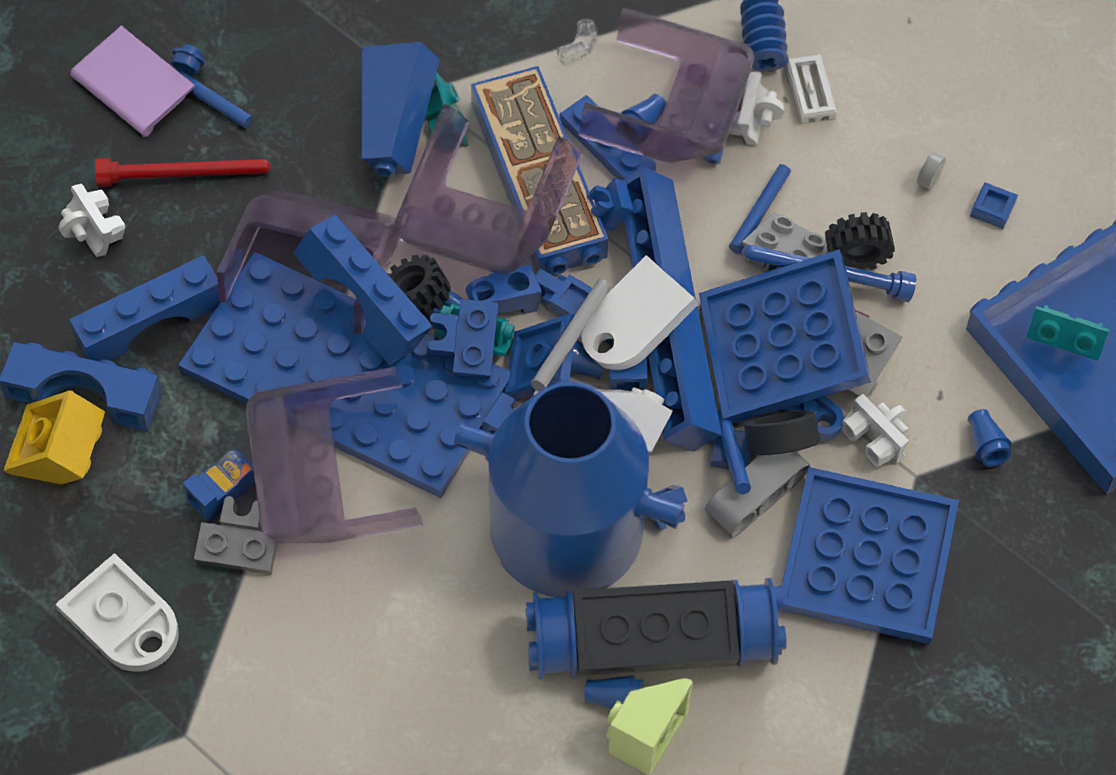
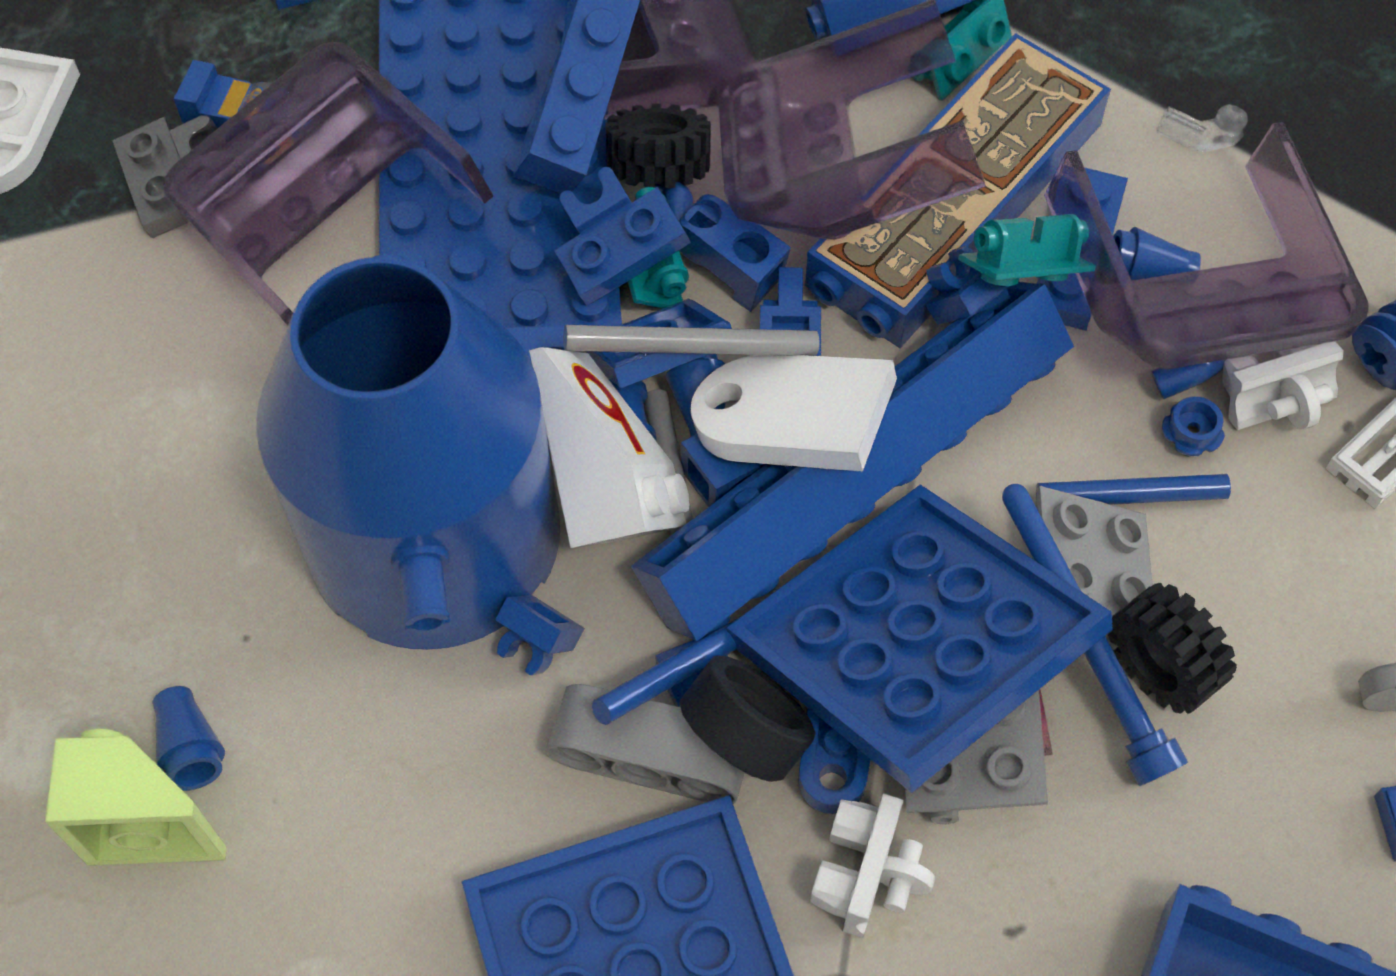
camera: 60 degrees right, 0 degrees up
(624, 161) = (1011, 254): none -> teal hinge
(655, 628) = (297, 730): black brick -> none
(749, 153) = (1199, 414): none -> blue plate

